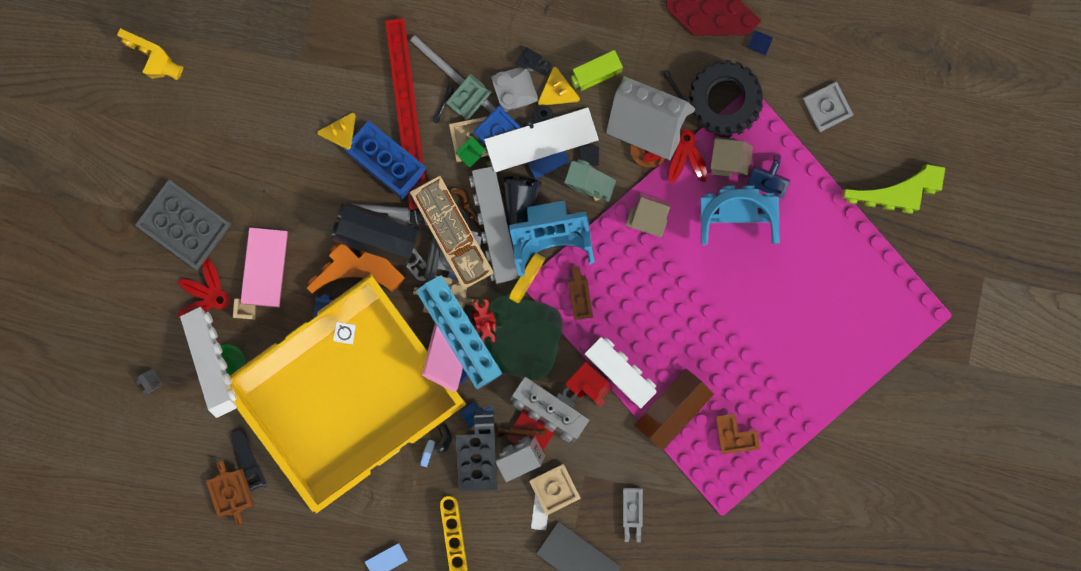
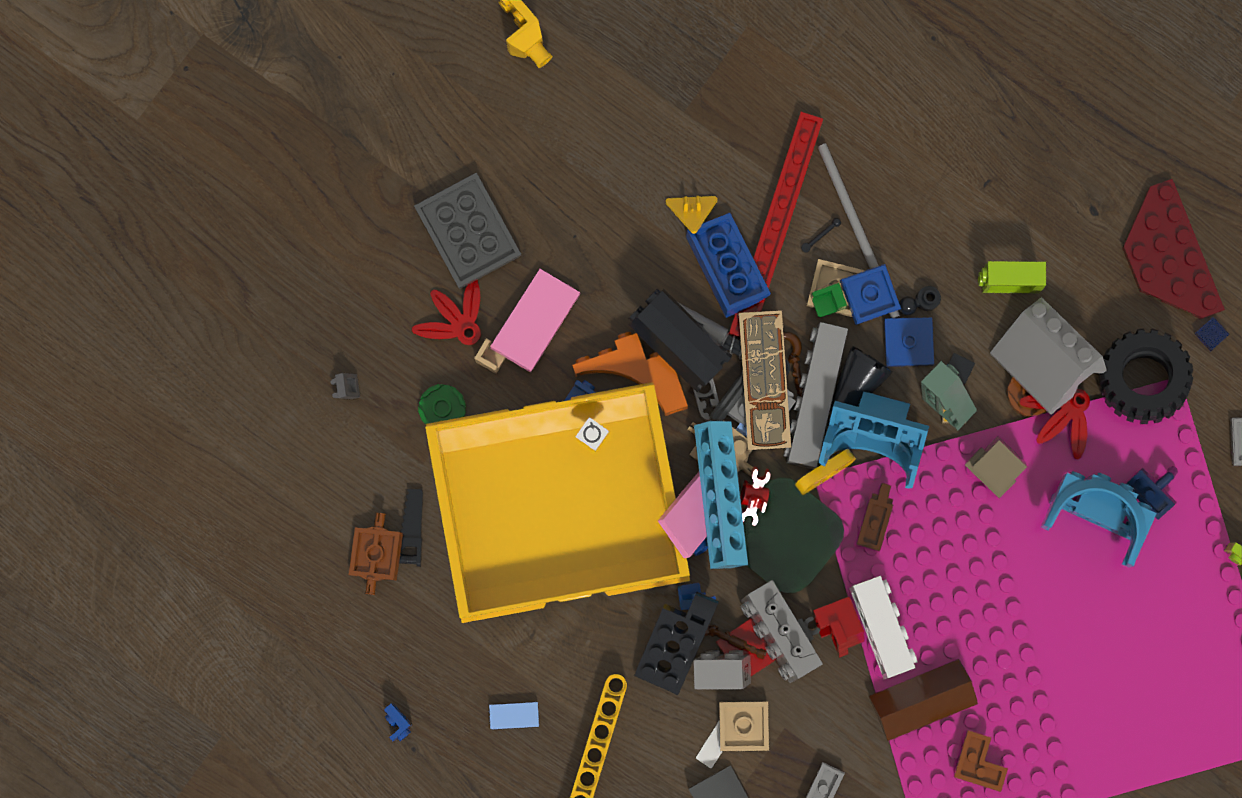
camera: 25 degrees right, 5 degrees down
(208, 362) = (424, 394): white brick -> none
(427, 453) = (618, 616): light blue tile -> none
(445, 440) = (646, 611): black arm -> none
(468, 97) = (854, 239): sand green plate -> none
(514, 89) = (910, 254): light grey slope -> none
(532, 61) = (944, 233): black plate -> none
(541, 141) = (914, 326): white sticker -> none
(557, 90) = (957, 279): yellow piece -> none
(667, 74) = (1089, 320): black hinge -> none
(731, 157) = (1120, 445): dark tan plate -> none

